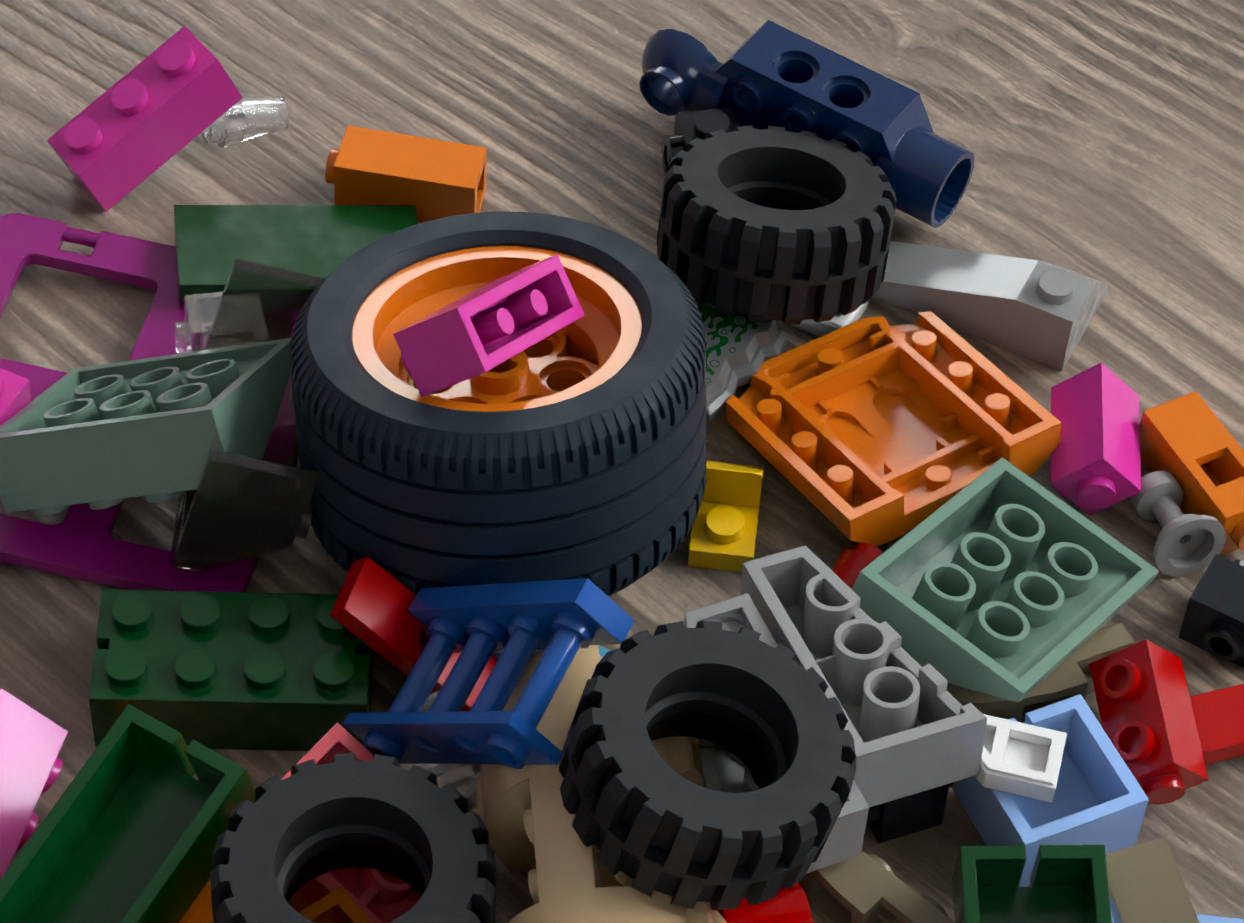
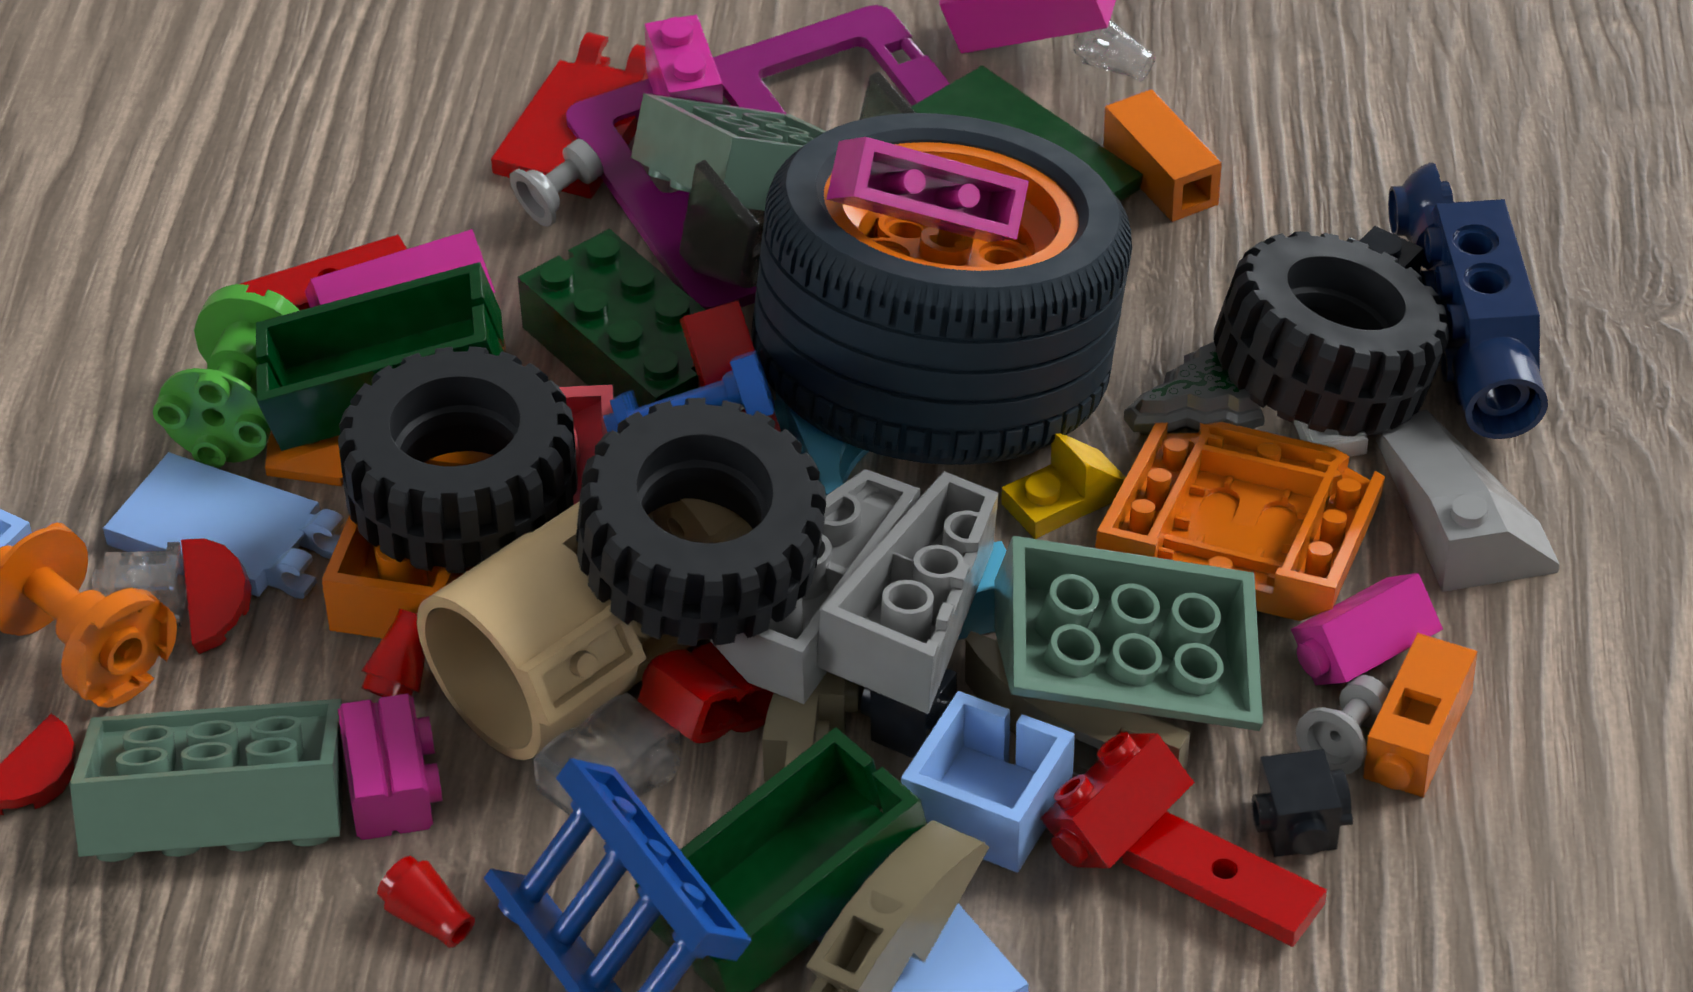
camera: 55 degrees right, 5 degrees down
(1021, 758) = (966, 720): white tile -> none

